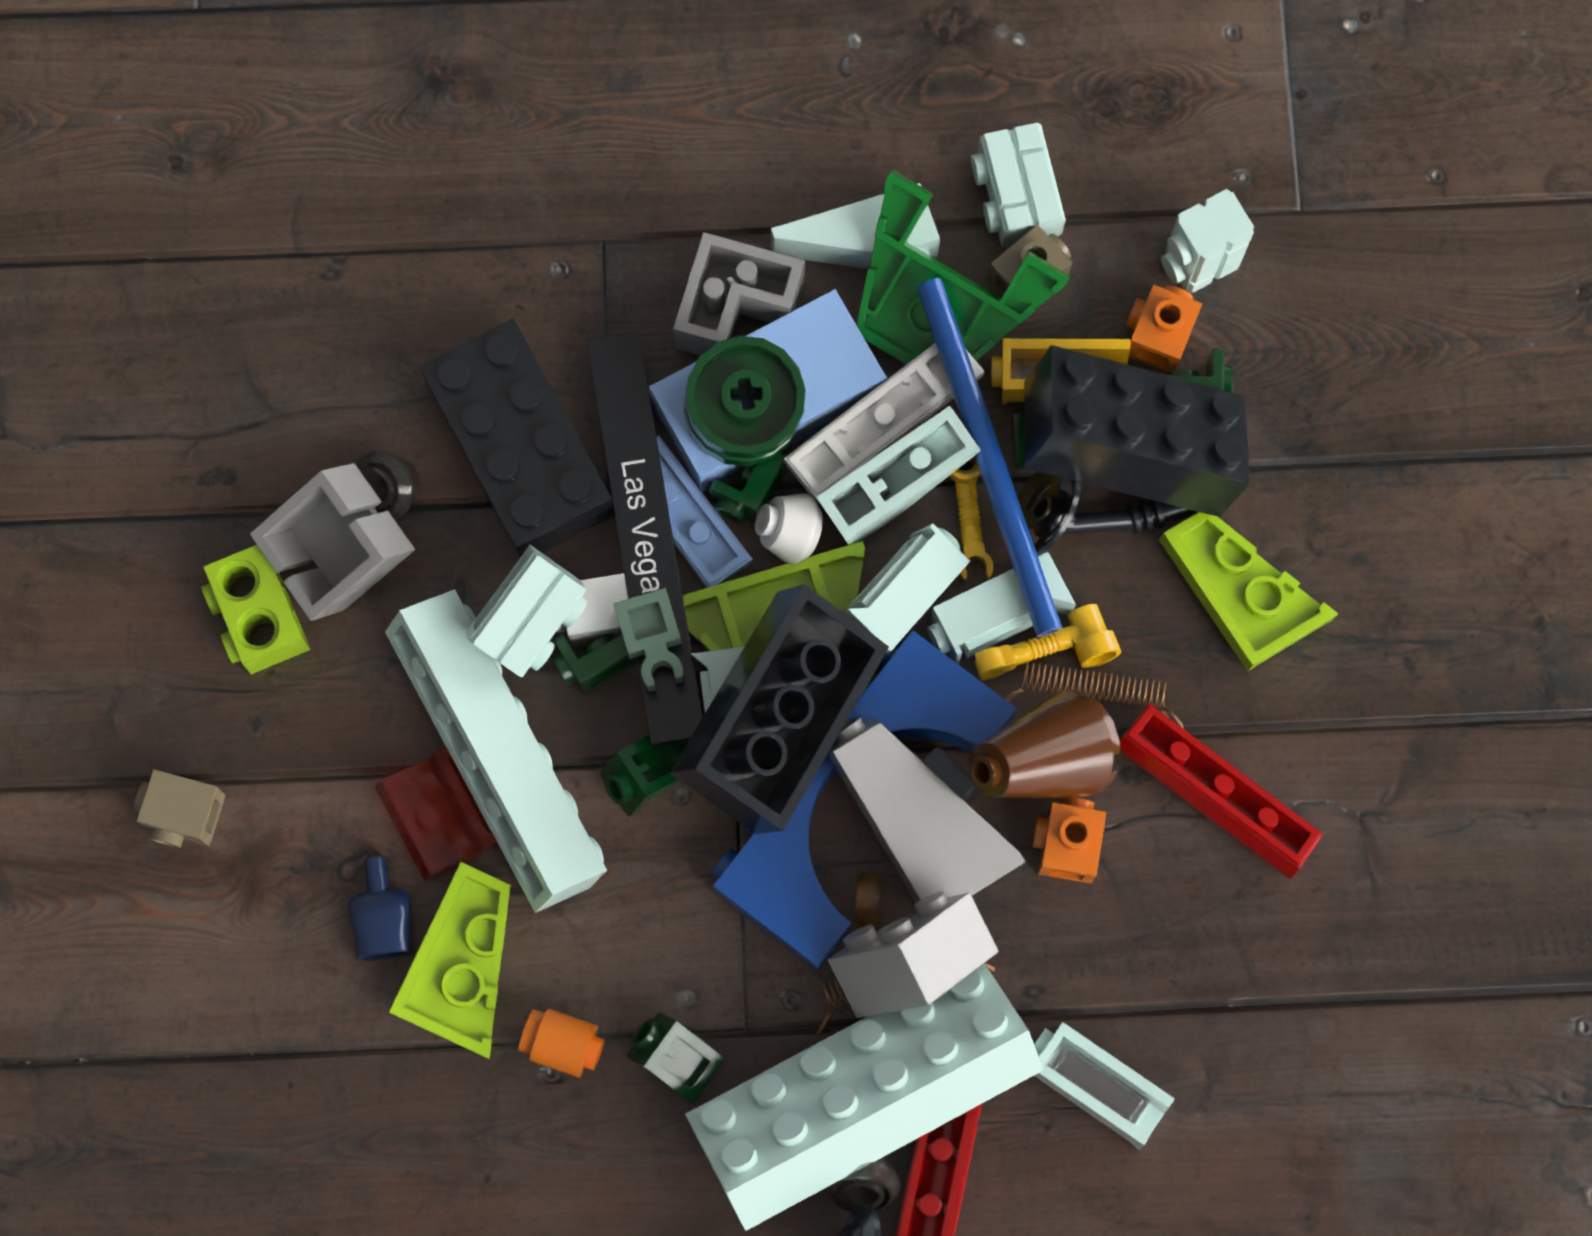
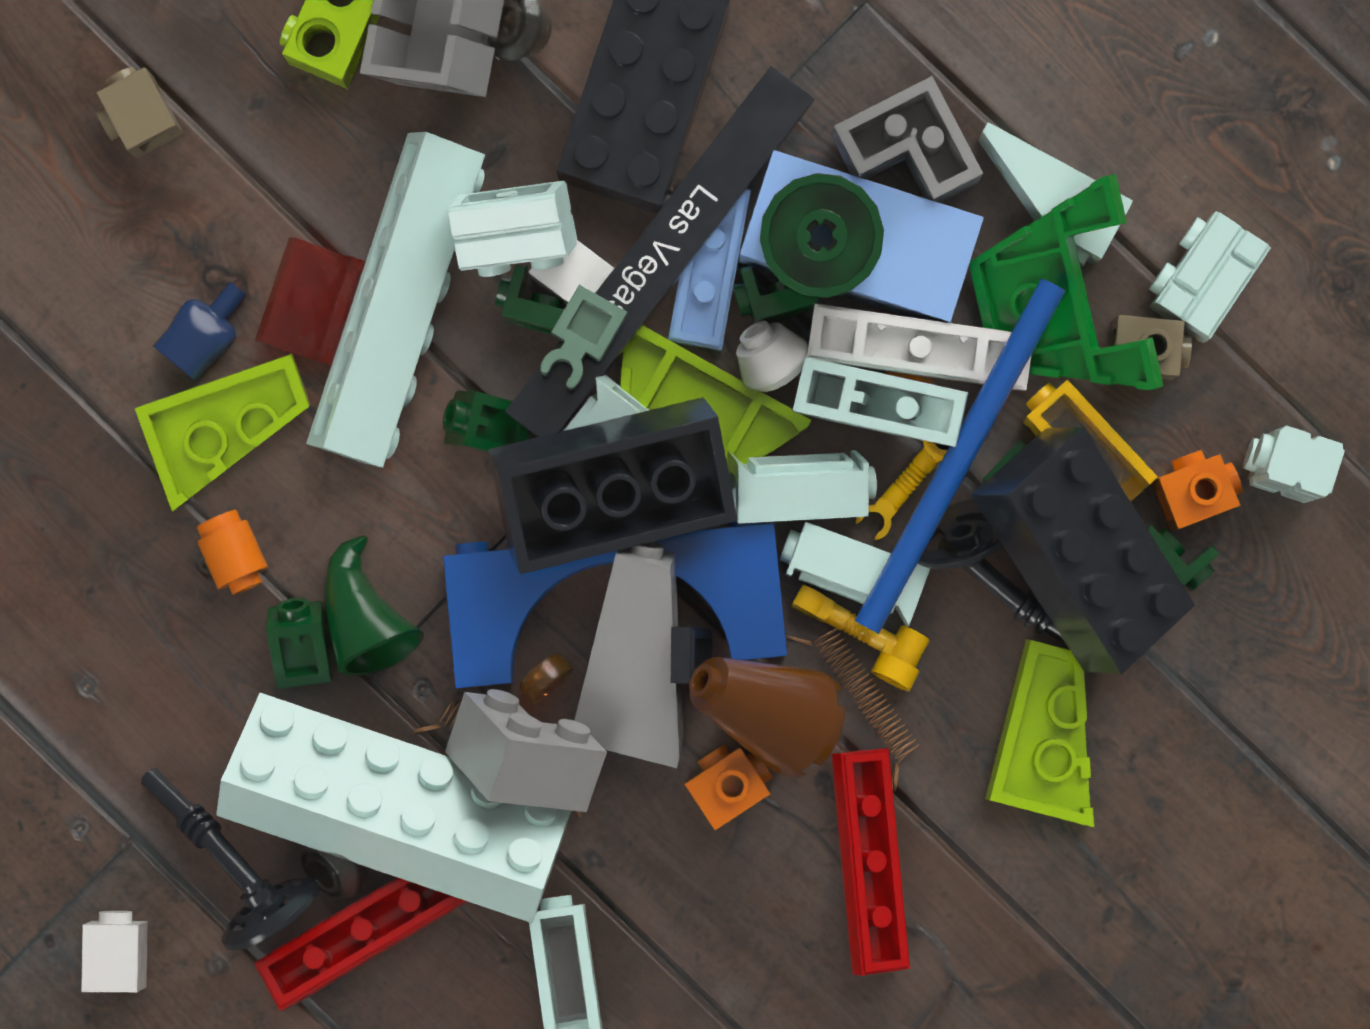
camera: 50 degrees right, 10 degrees up
(705, 995) = (361, 625): none -> dark green hat

